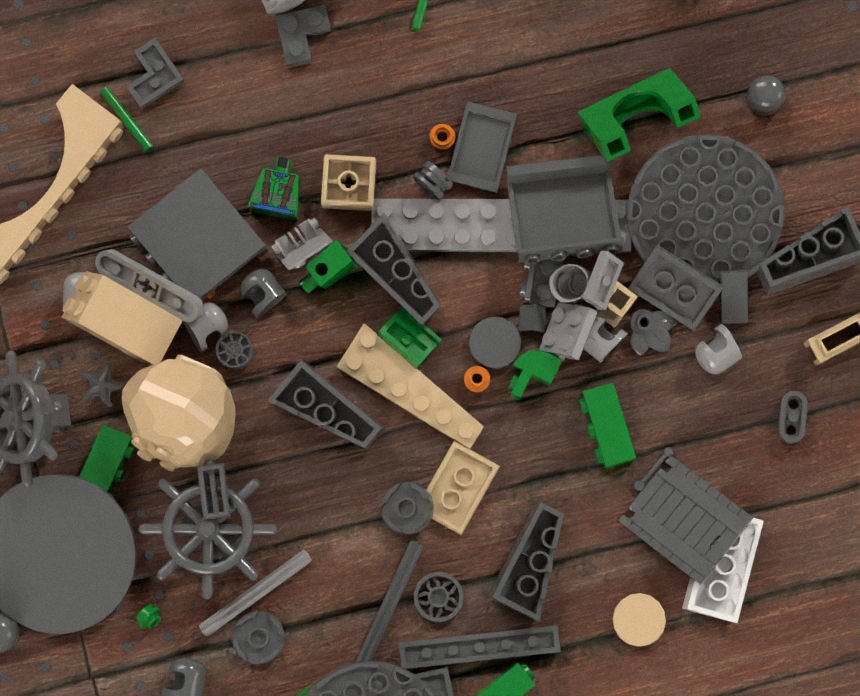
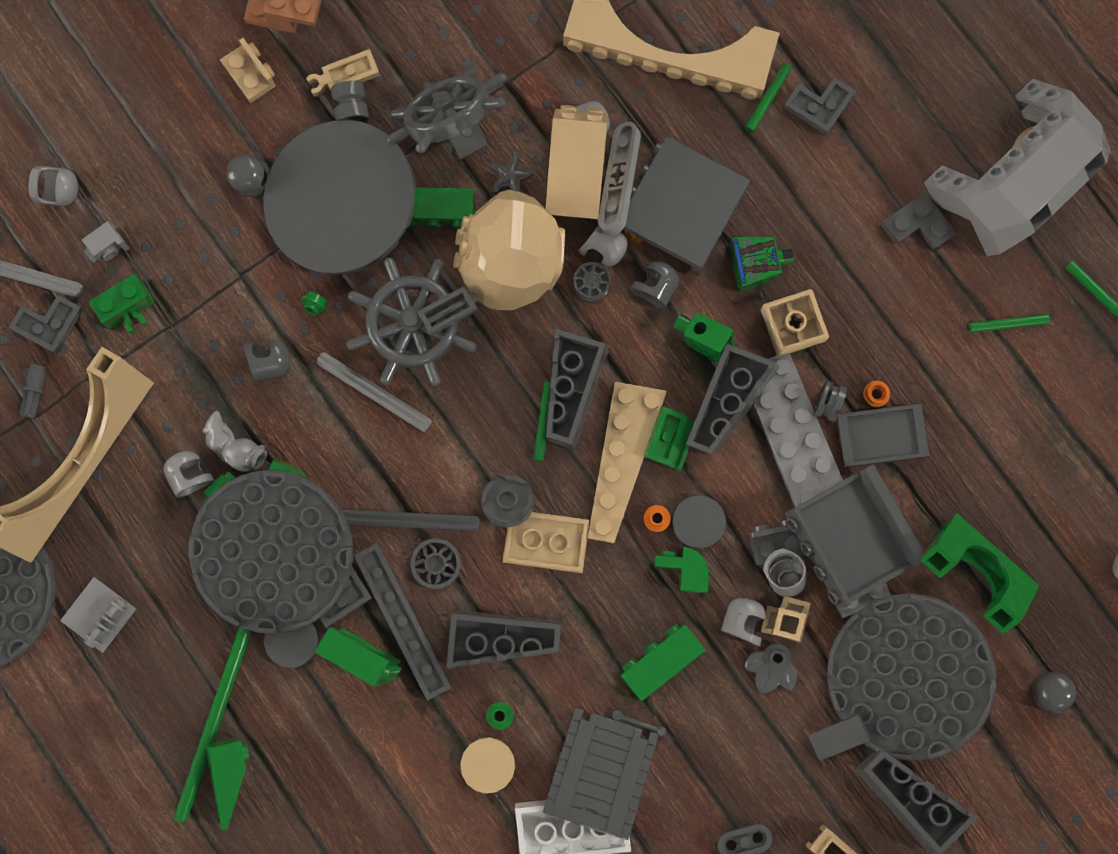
camera: 70 degrees right, 0 degrees up
(258, 637) = (334, 411): dark grey tile -> none
(313, 243) = (703, 299): light grey hinge -> none
(346, 446) = (541, 438): none -> green bar
(532, 318) = (737, 548): dark grey slope -> none
(568, 331) = (738, 587): light grey plate -> none
(590, 591) = (499, 706): none -> green plate
(603, 280) = (801, 600): light grey plate -> none
(675, 287) = (824, 675): dark grey plate -> none
(719, 353) = (778, 744): light grey helmet -> none

